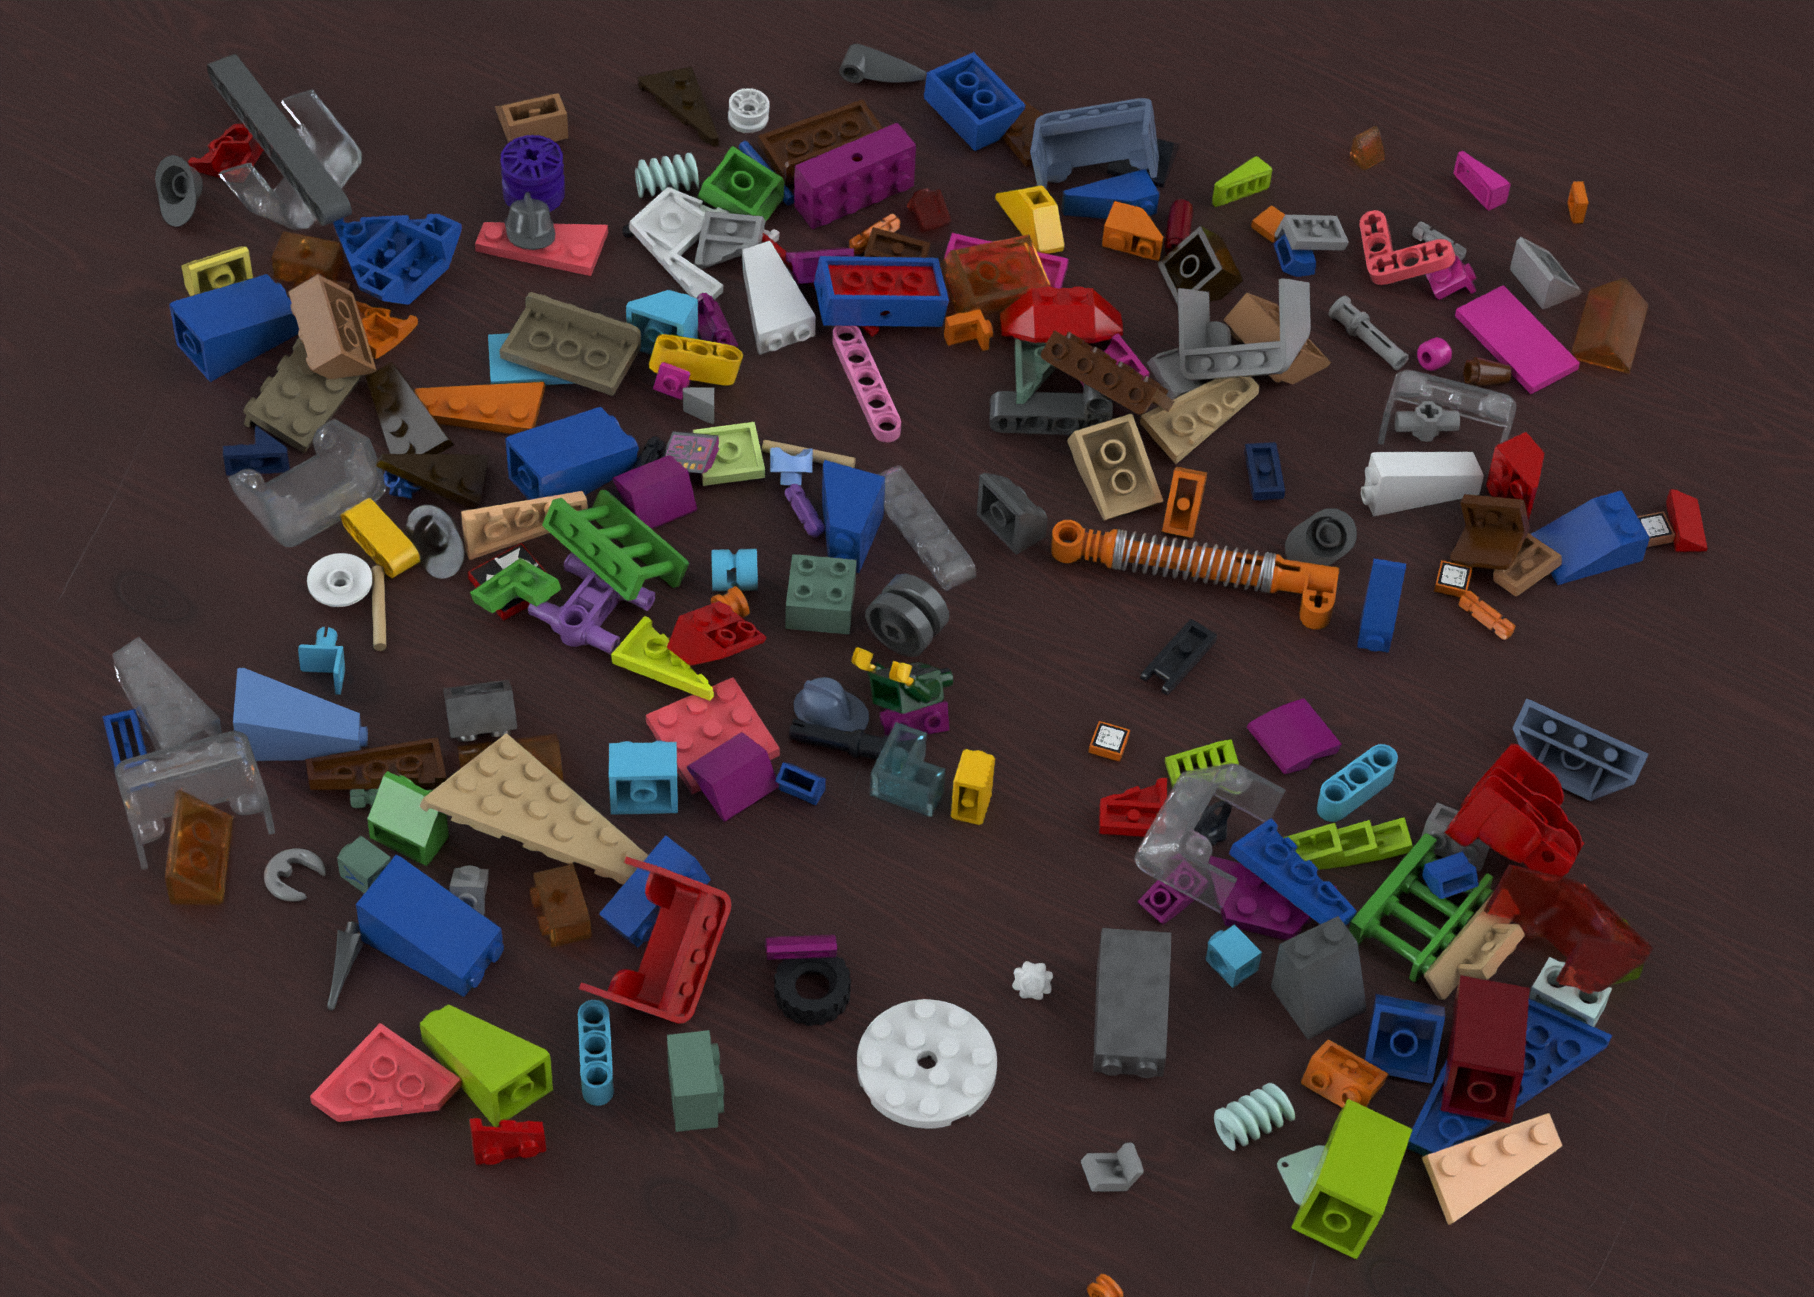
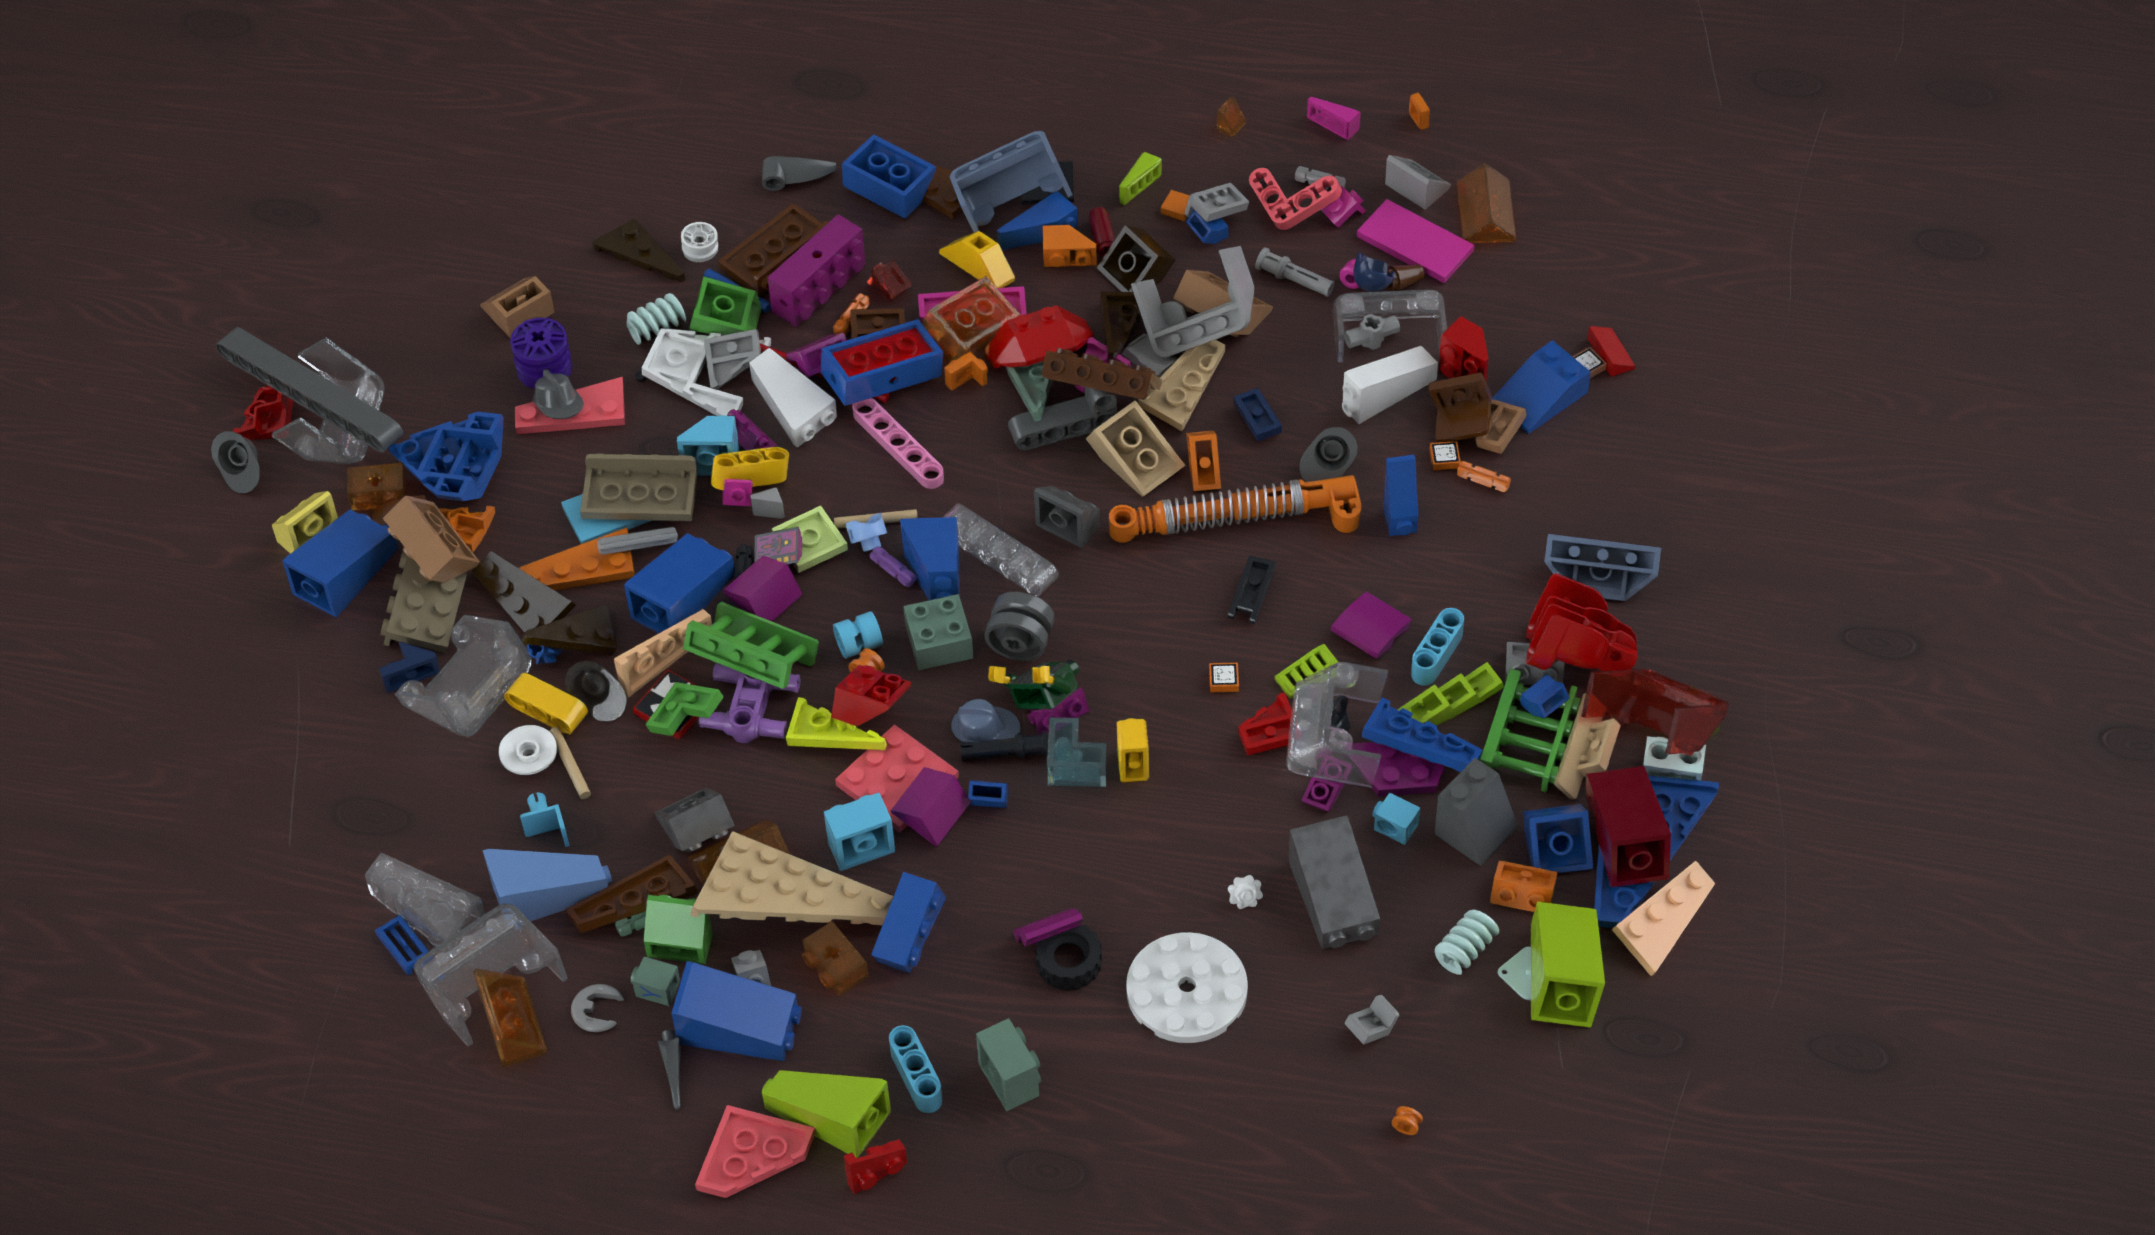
camera: 15 degrees left, 0 degrees up
(547, 398) = (637, 540): none -> light grey axle
(678, 948) = (949, 960): red windscreen -> none
(1155, 325) = (1119, 319): none -> dark brown wing
(1450, 358) = (1371, 274): none -> dark blue hair

